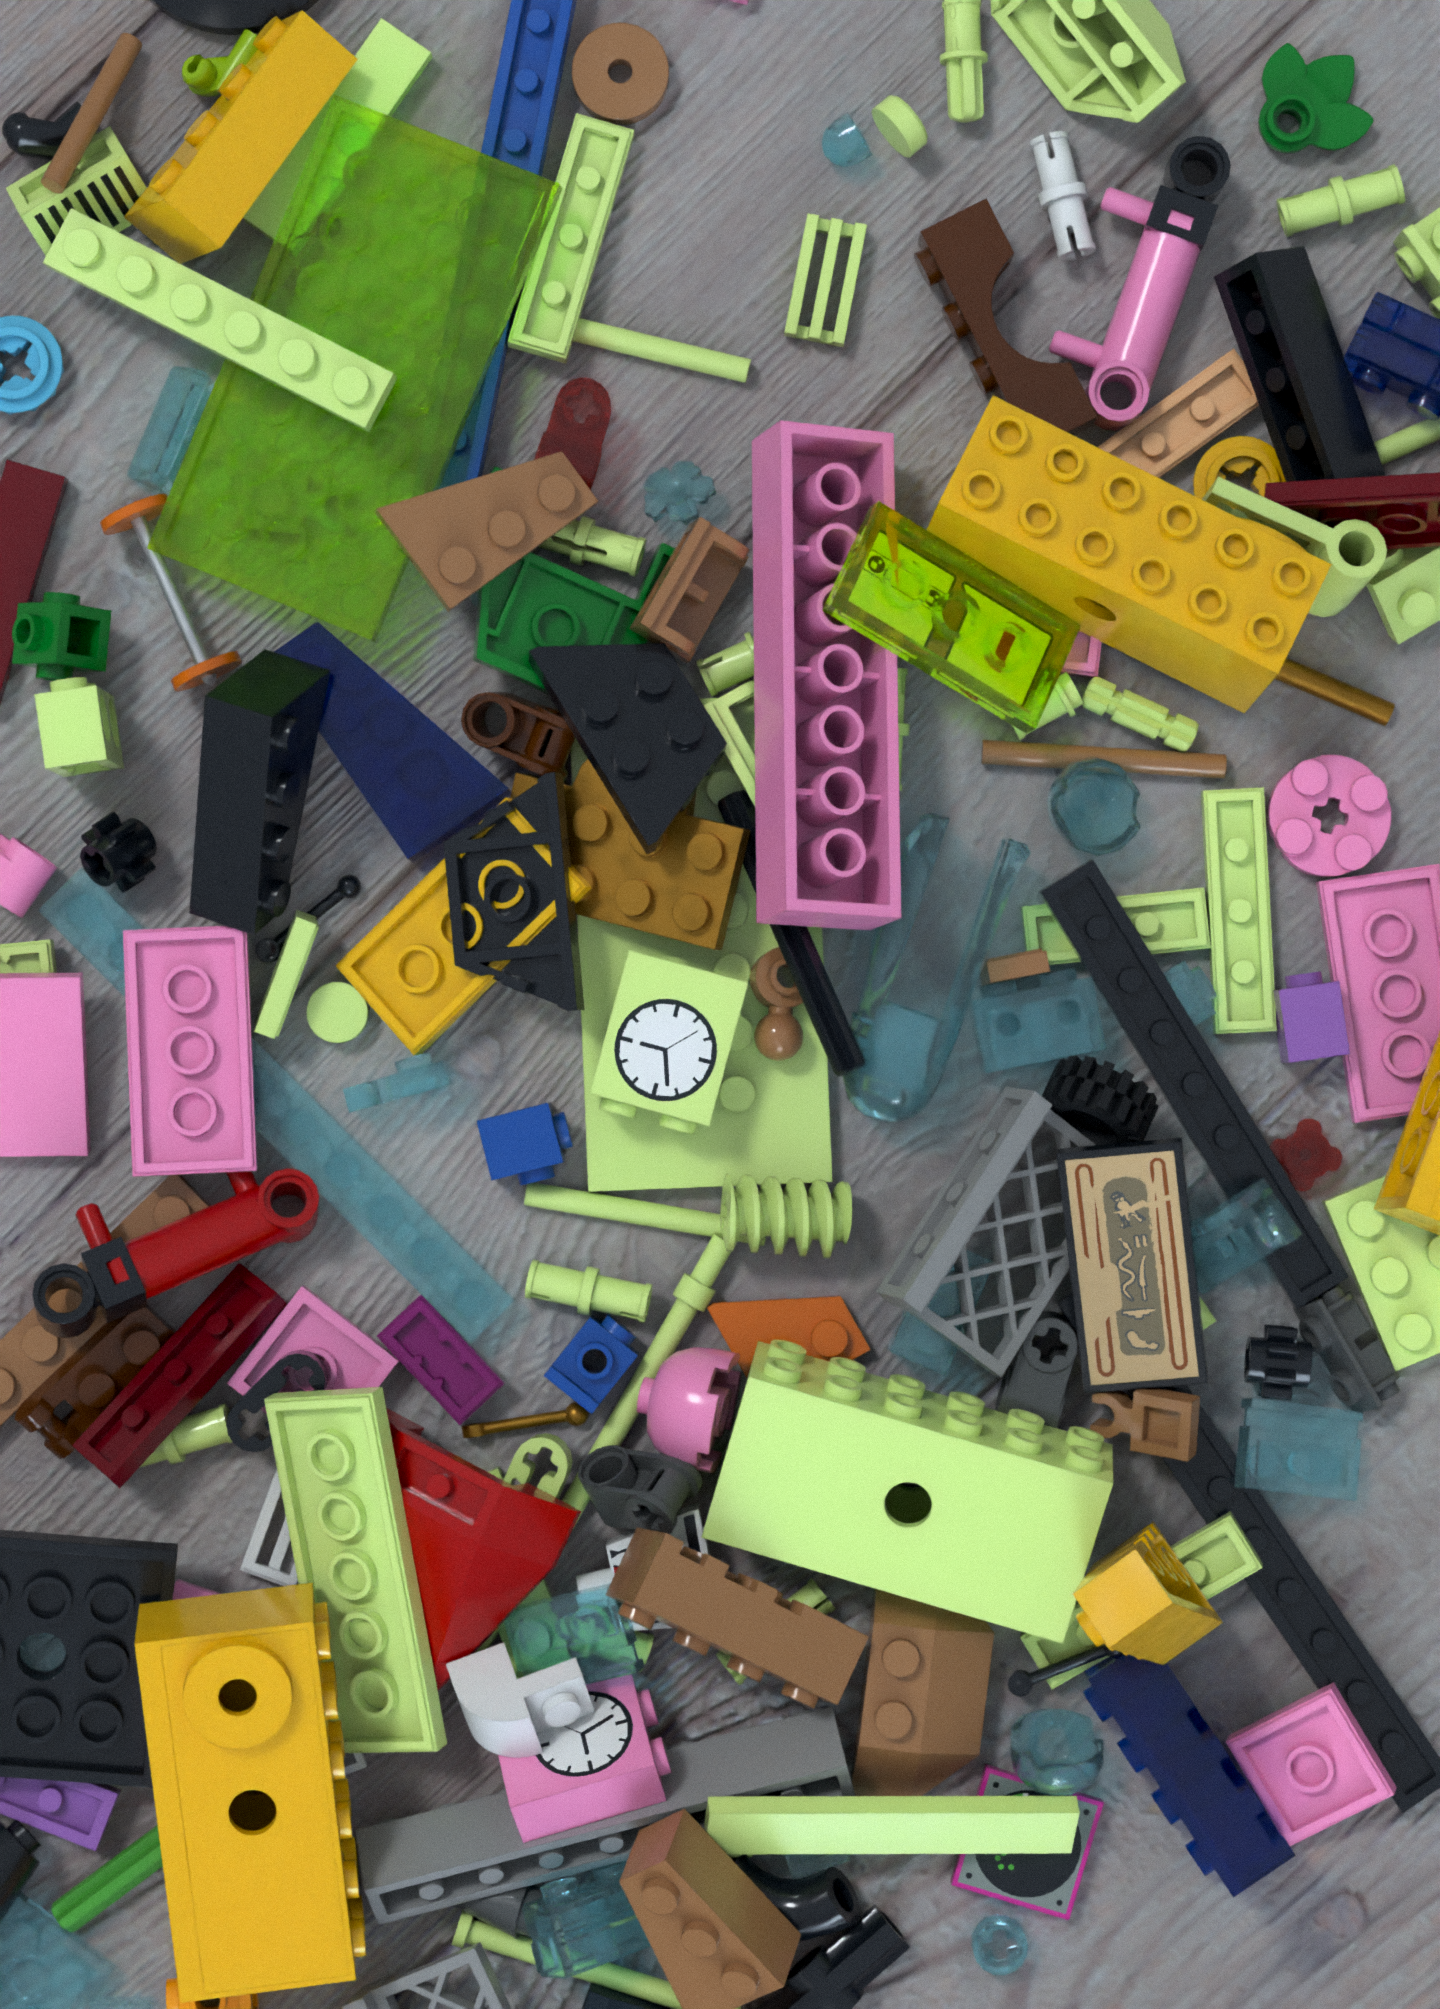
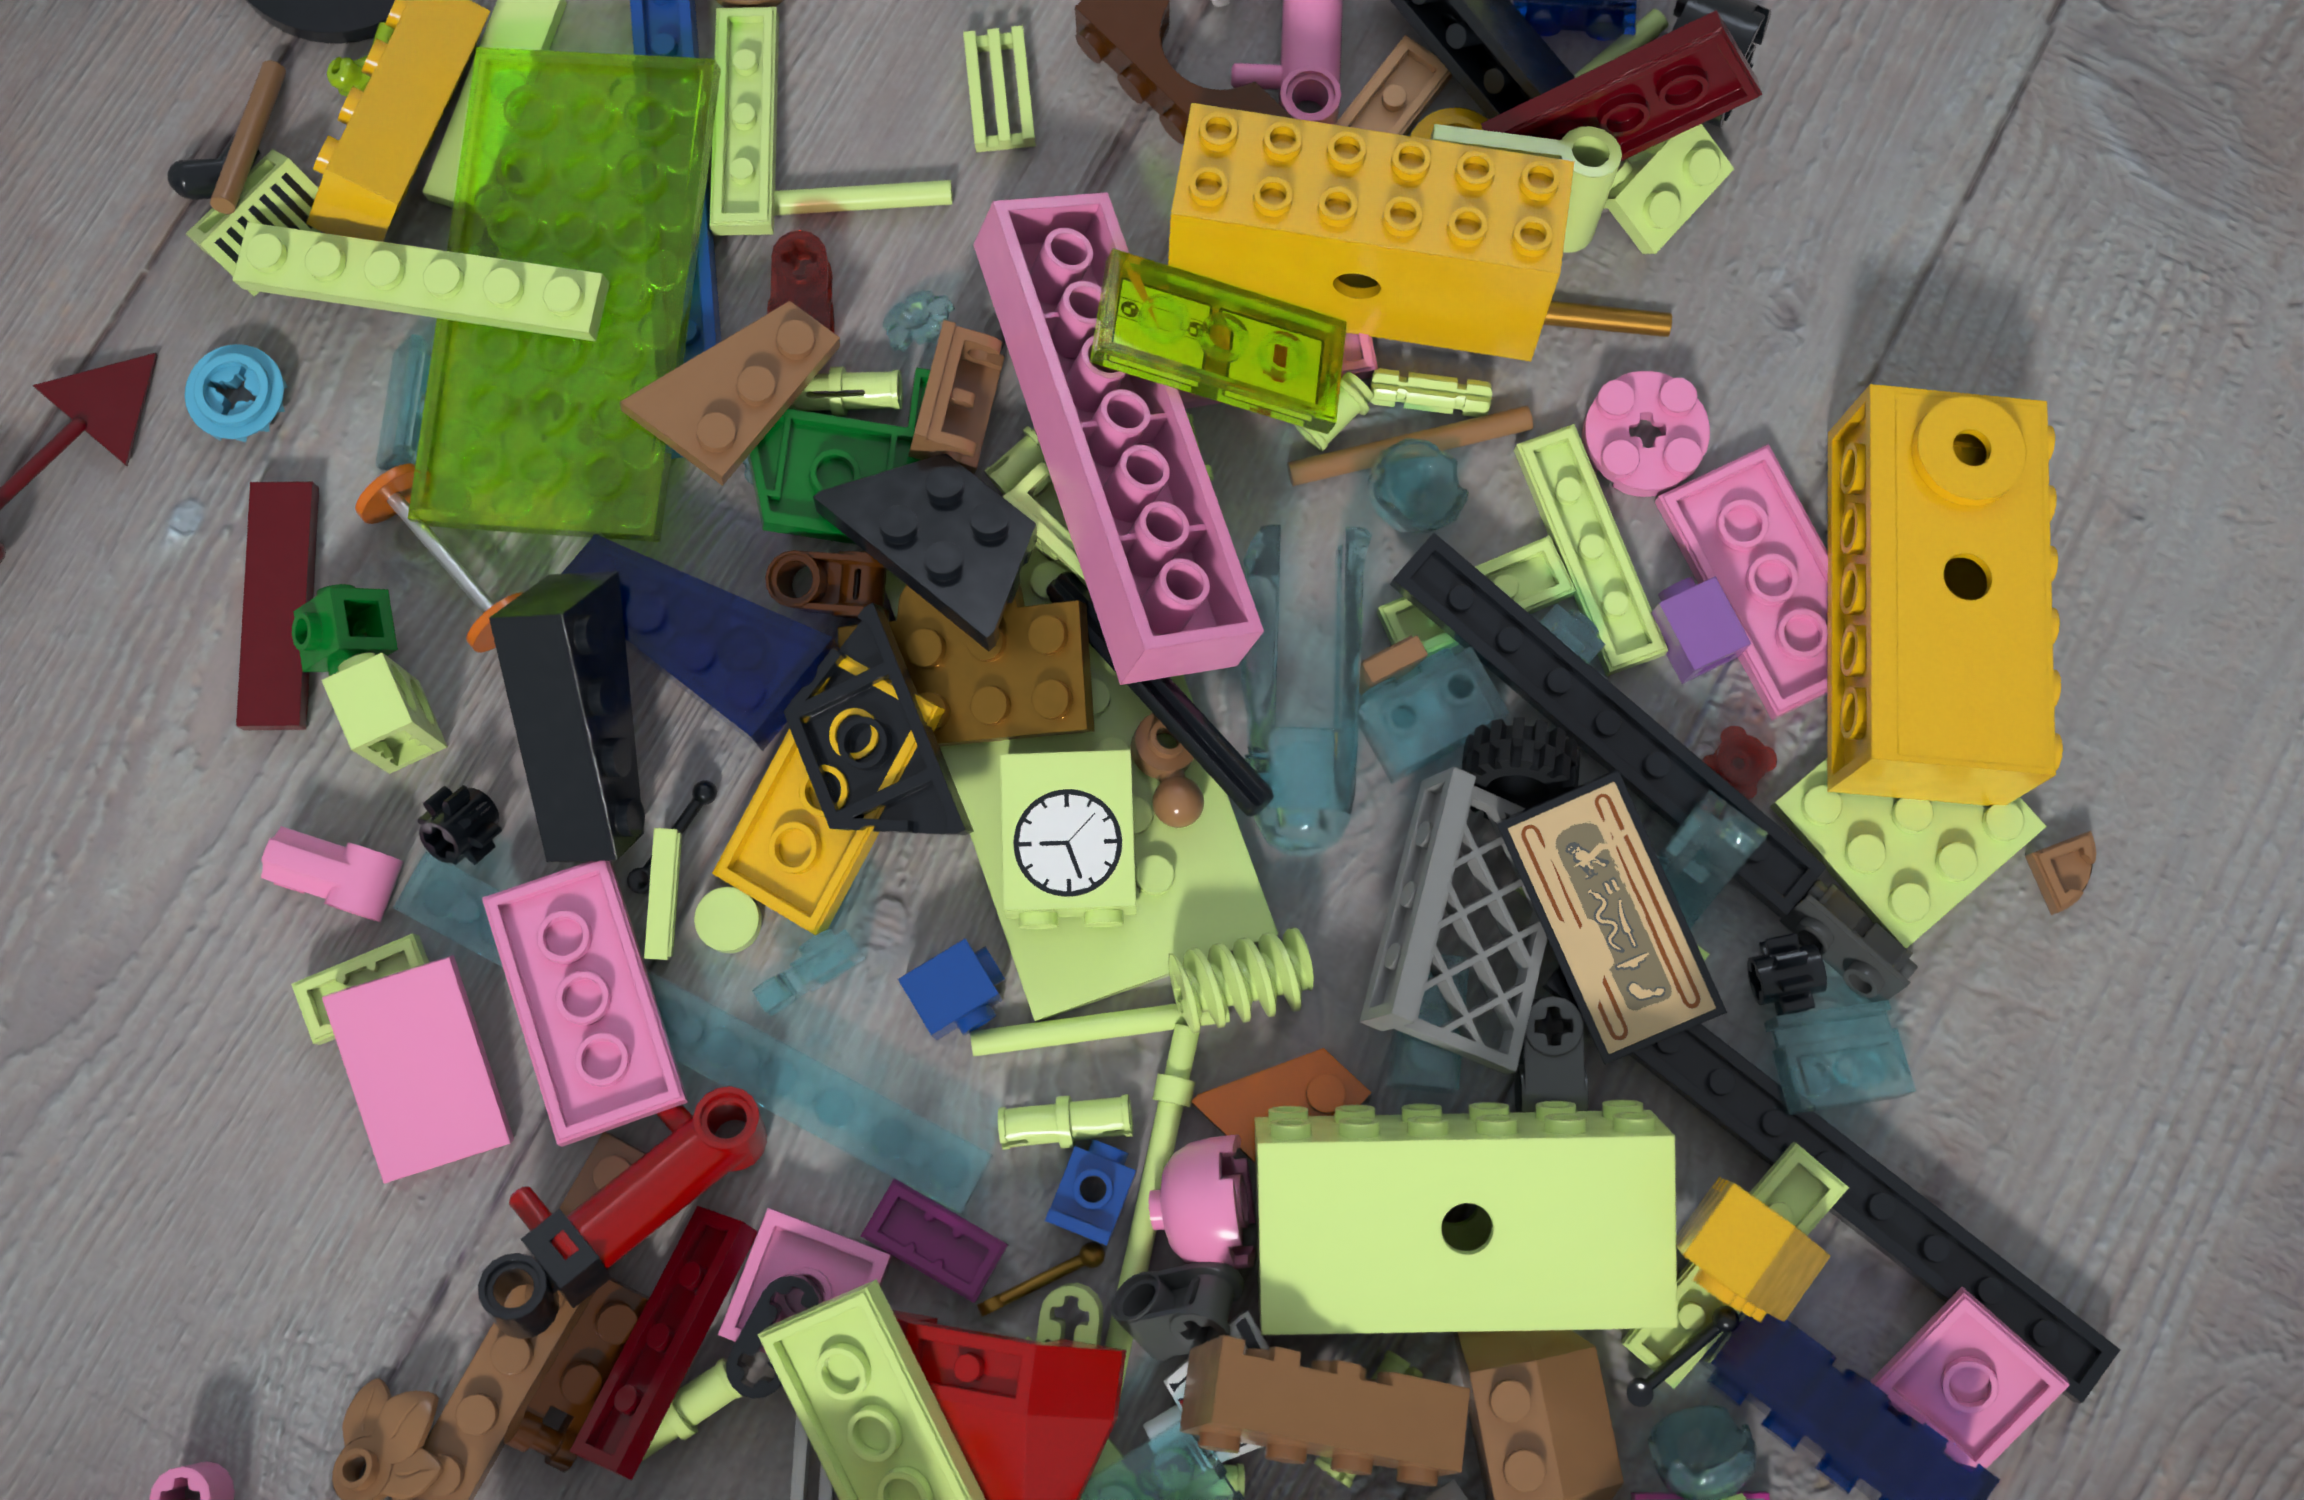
camera: 15 degrees left, 10 degrees down
(1157, 1419) = (1688, 1067): medium nougat plate -> none

